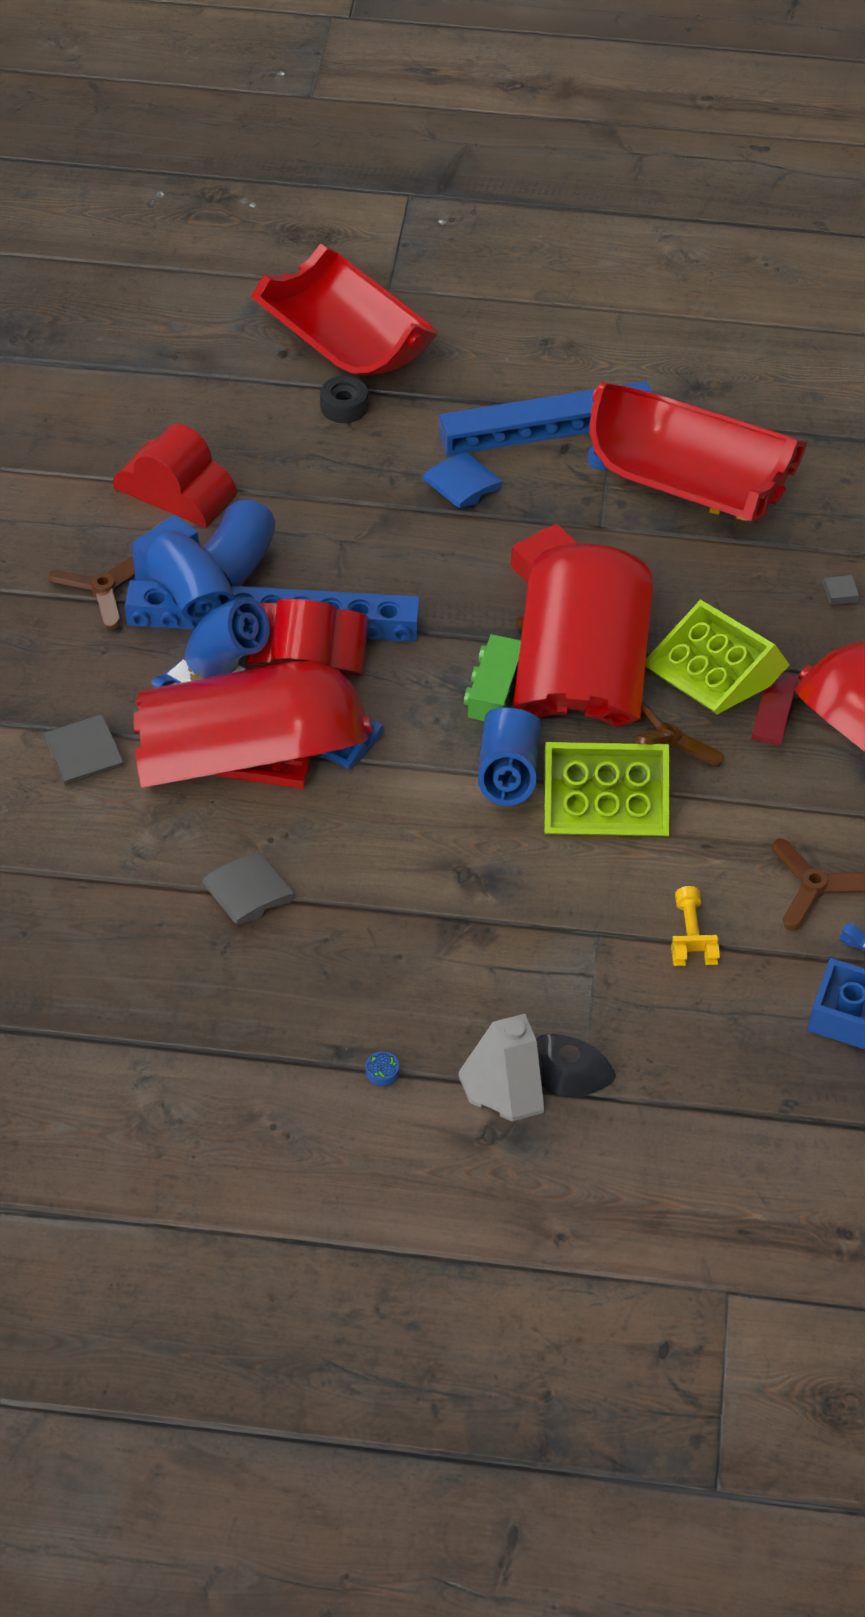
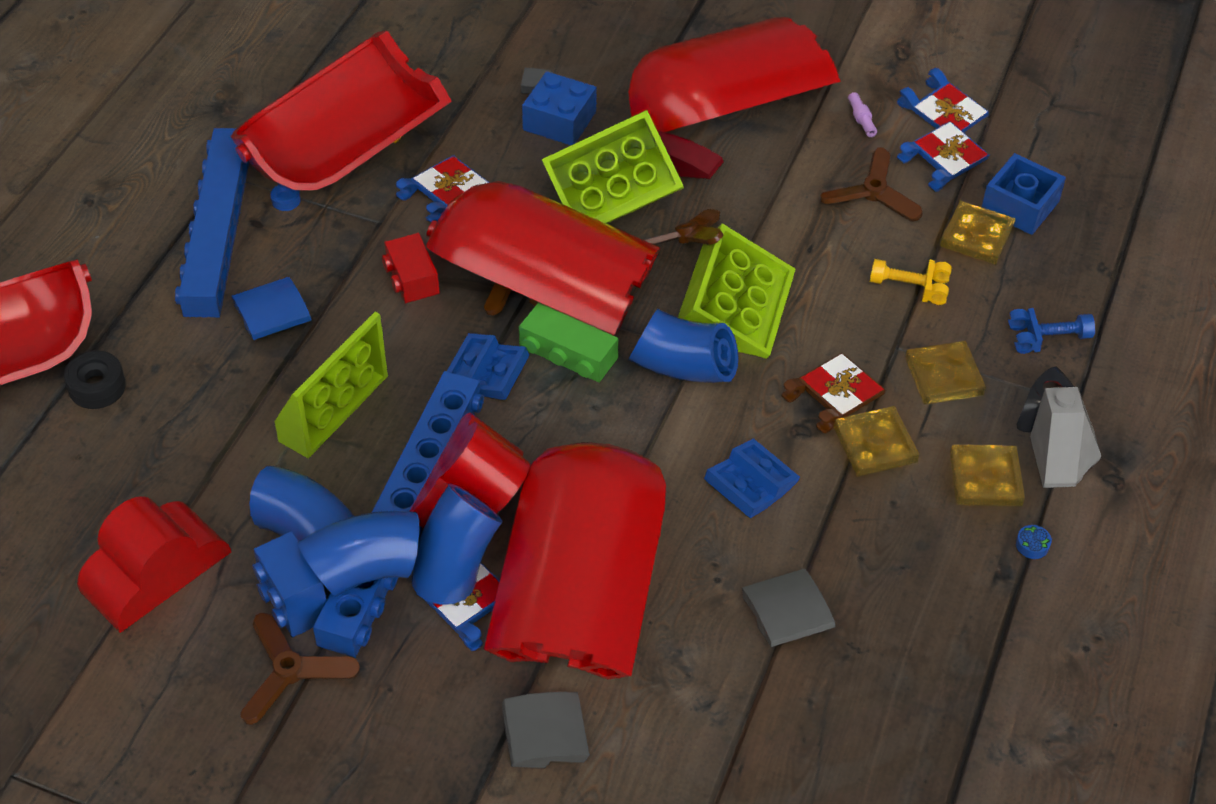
camera: 75 degrees left, 0 degrees up
(371, 530) = (334, 390): none -> lime slope
(388, 841) = (751, 478): none -> blue slope
(447, 1018) = (987, 475): none -> clear yellow plate
(452, 633) = (491, 363): none -> blue slope
(461, 926) = (876, 441): none -> clear yellow plate
(521, 890) = (837, 386): none -> flag
(576, 975) = (945, 372): none -> clear yellow plate
(667, 557) = (440, 184): none -> flag
(682, 1084) = (1032, 340): none -> blue bar
(783, 977) = (977, 232): none -> clear yellow plate
(800, 610) = (559, 108): none -> blue brick

